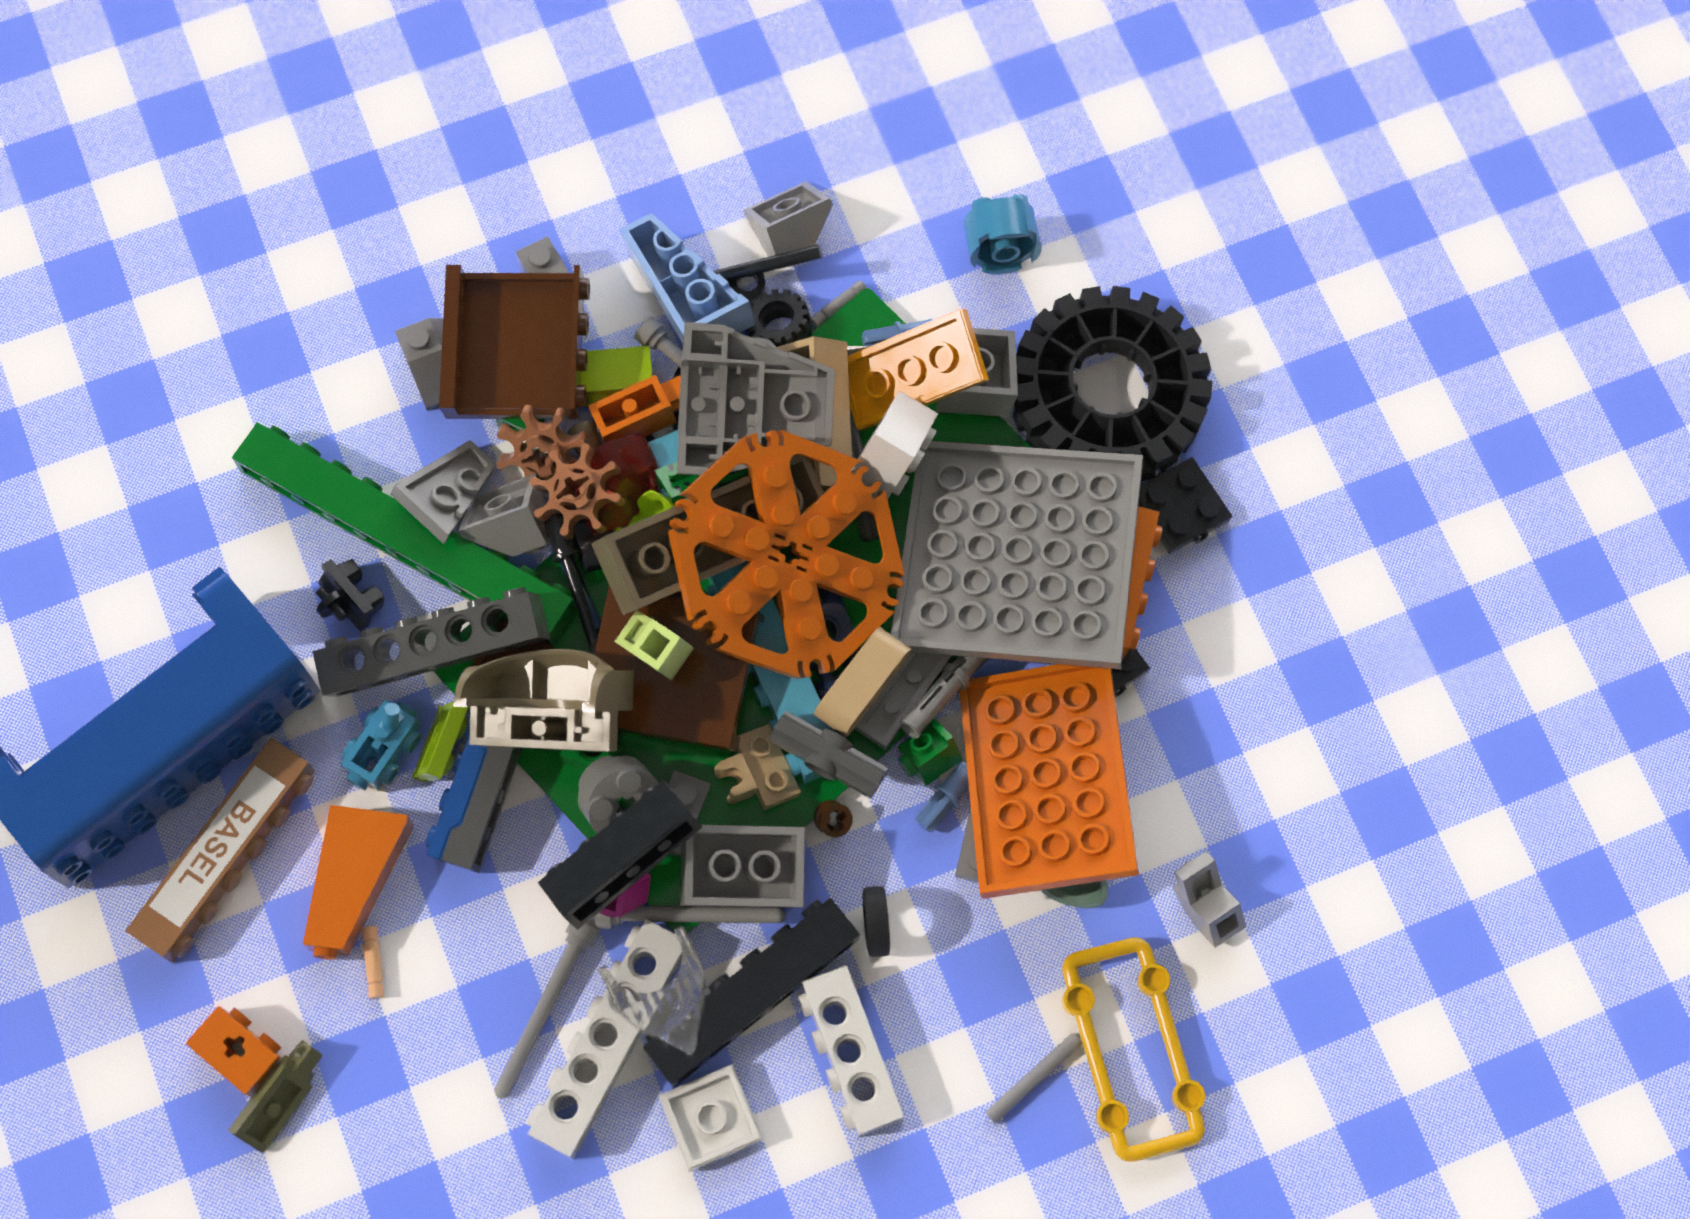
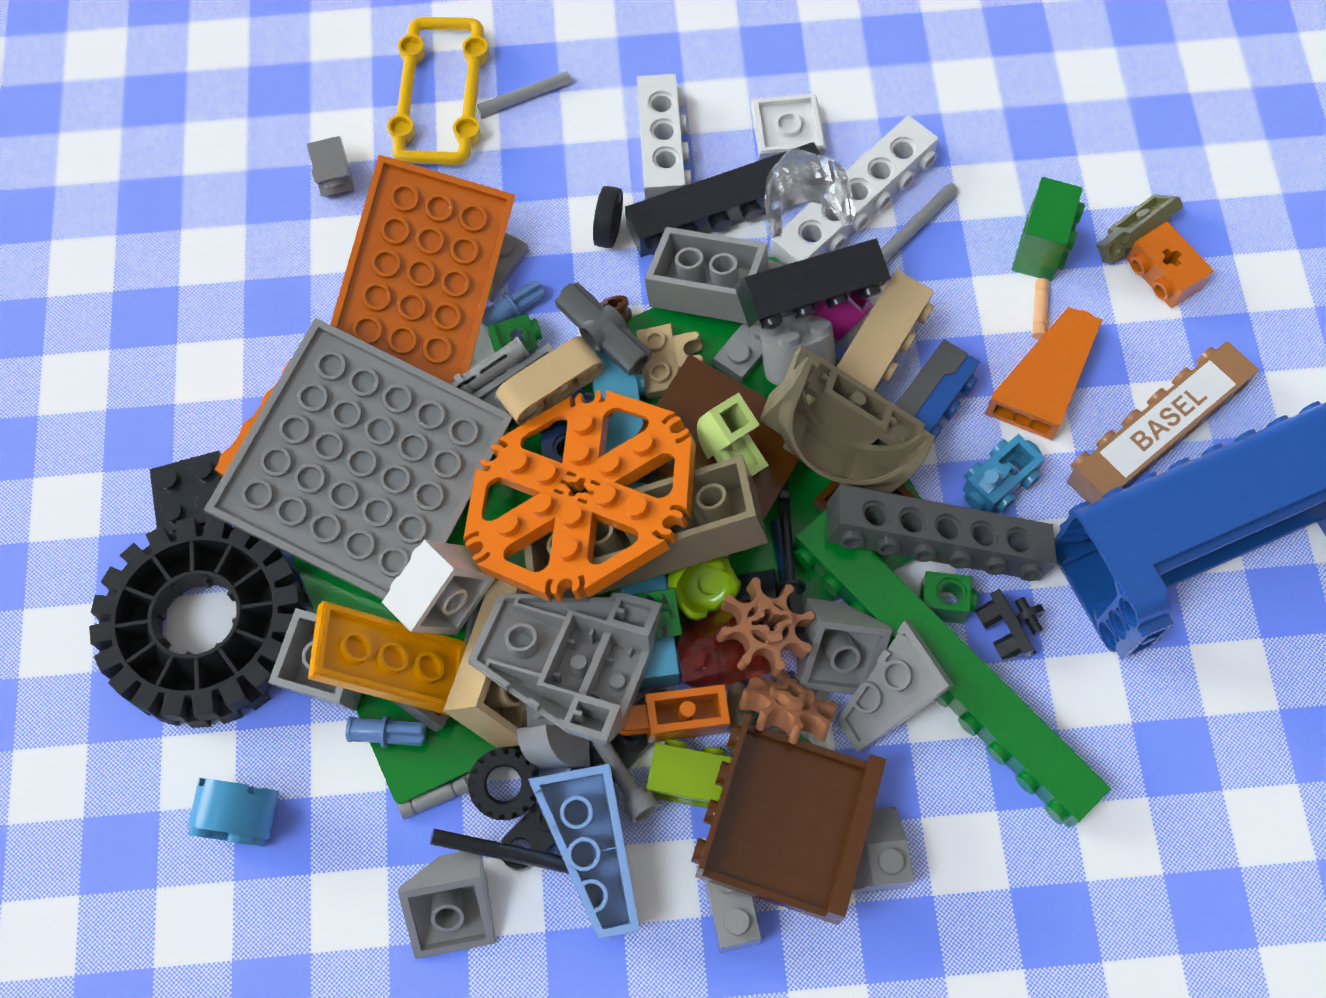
camera: 155 degrees left, 5 degrees down
(379, 1042) = (1049, 229): none -> green brick
(401, 592) = (958, 585): none -> green brick
(436, 753) = (948, 458): lime plate -> none
(536, 841) = (887, 331): none -> tan wedge

